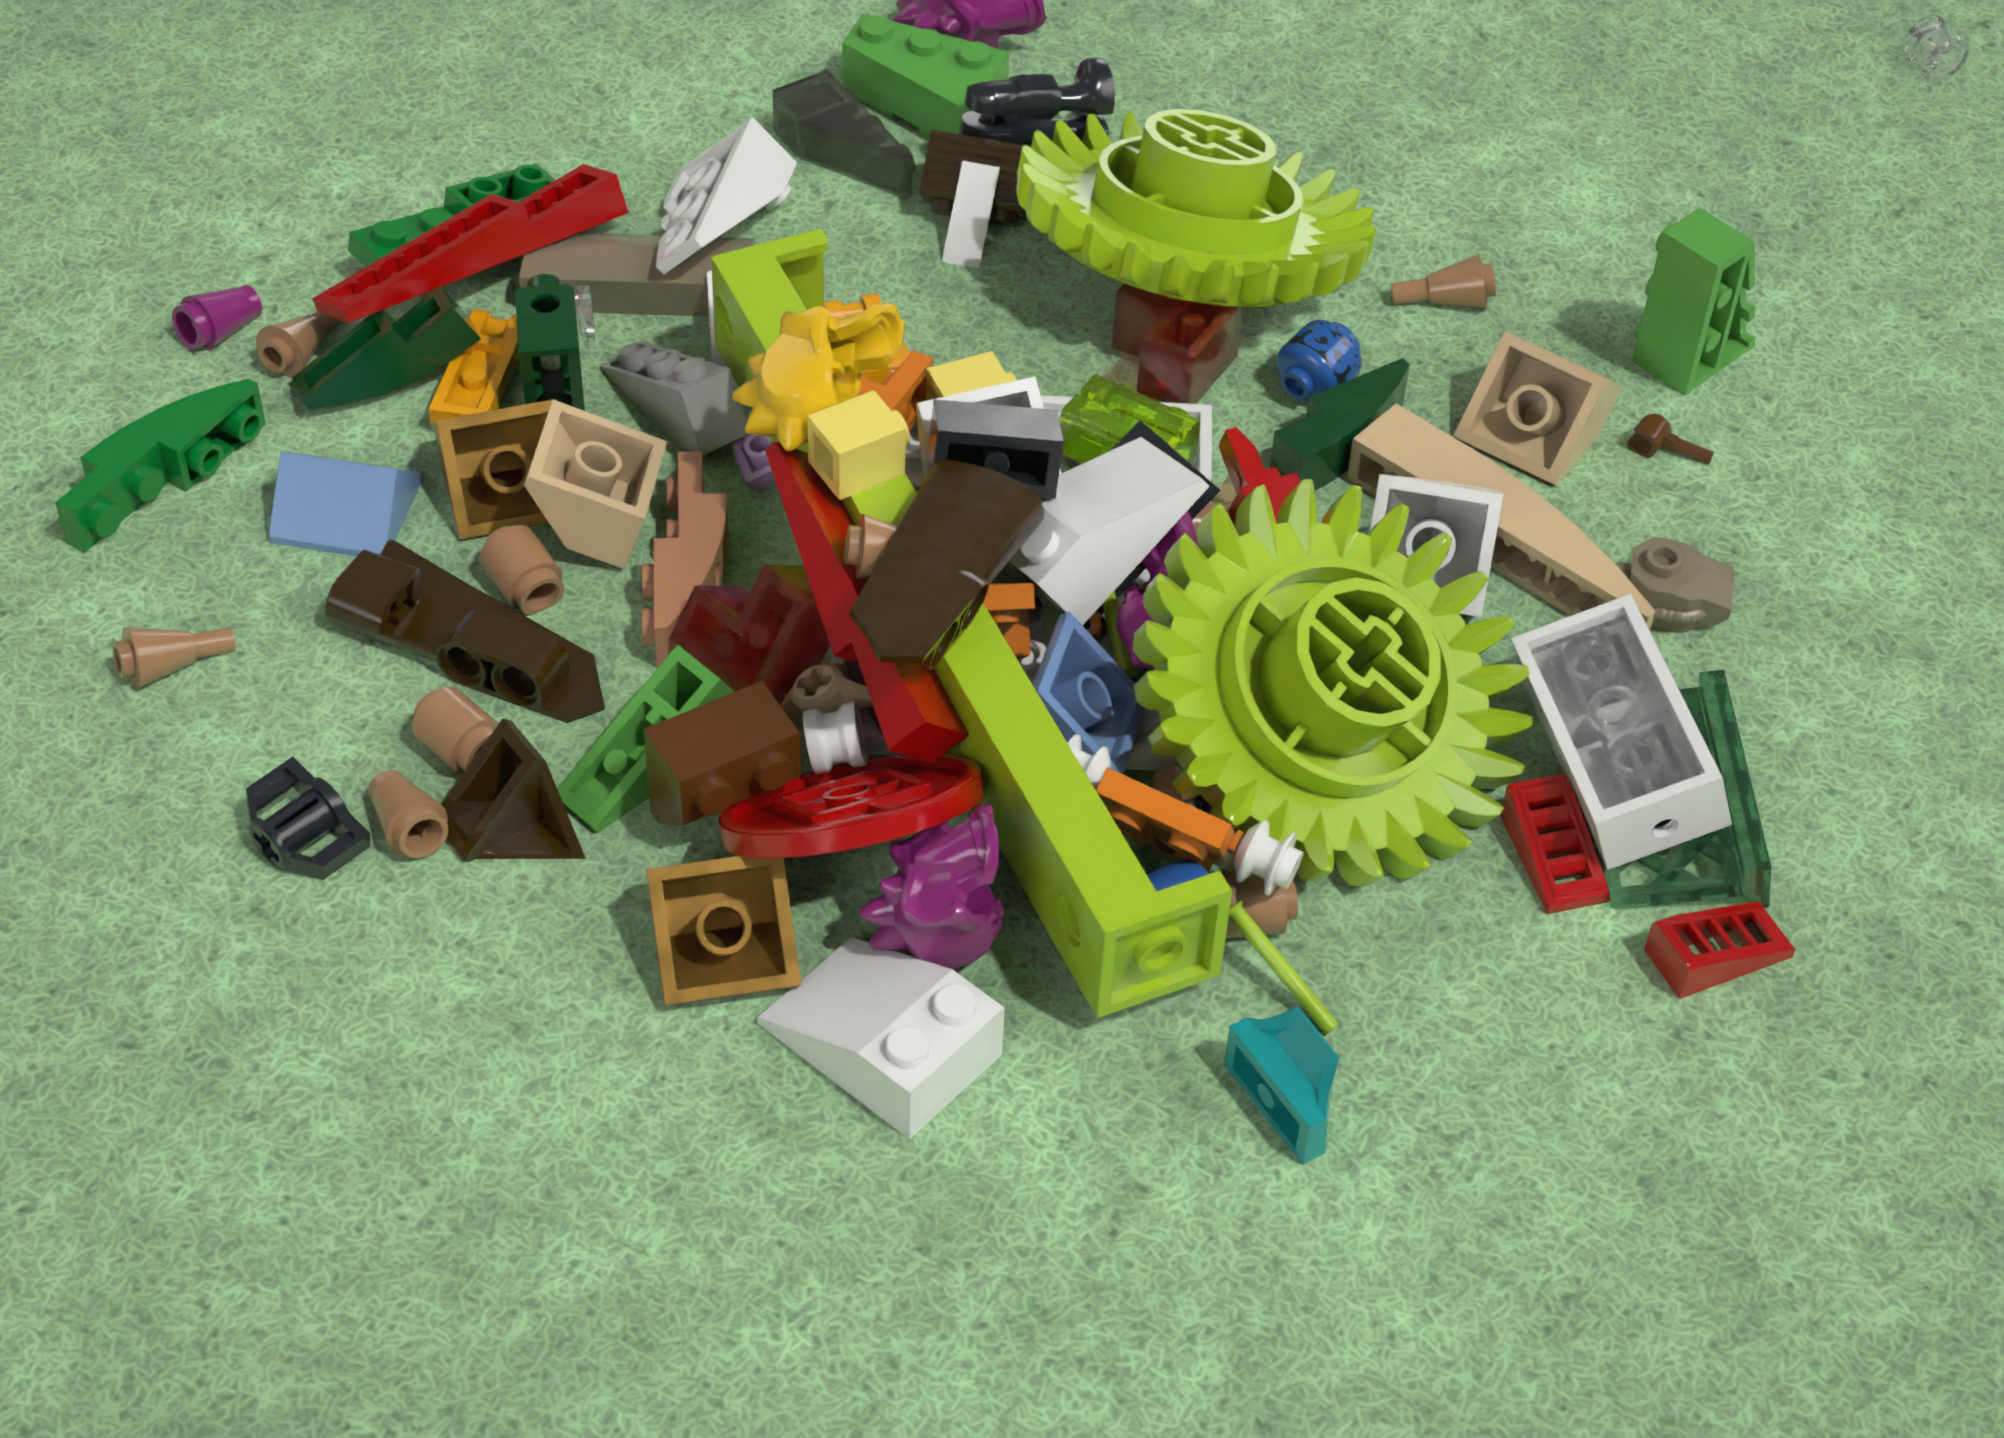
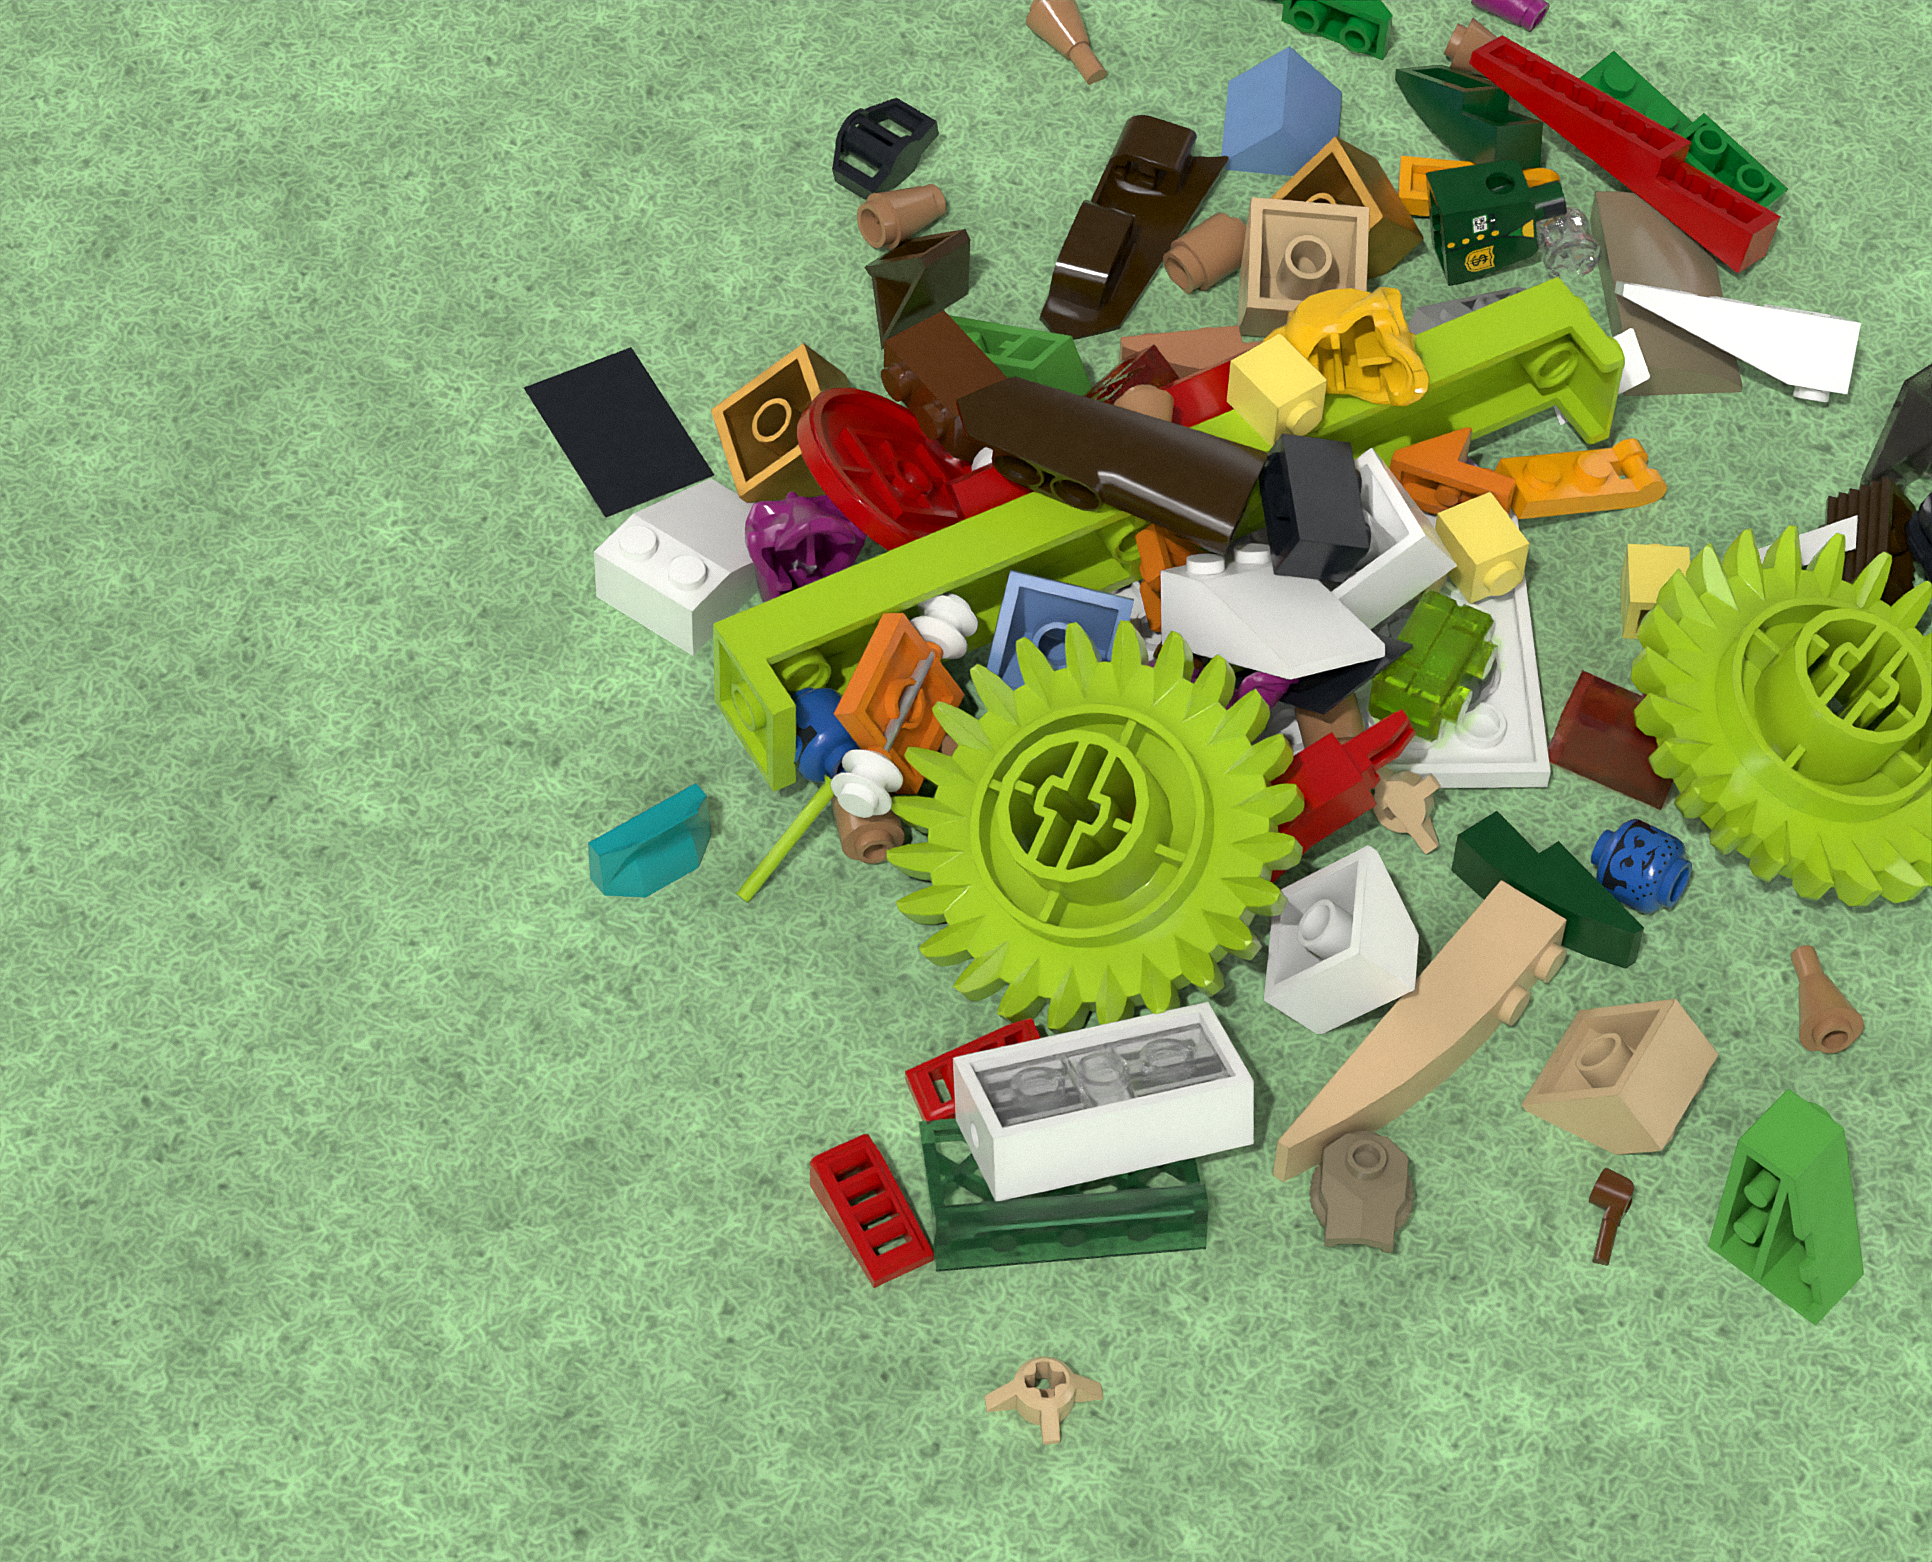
camera: 85 degrees right, 5 degrees up
(452, 727) = (999, 232): medium nougat brick -> none
(665, 1106) = (618, 432): none -> black piece
(1004, 314) = (1642, 577): none -> light yellow brick
(1901, 834) = (1048, 1405): none -> tan piece

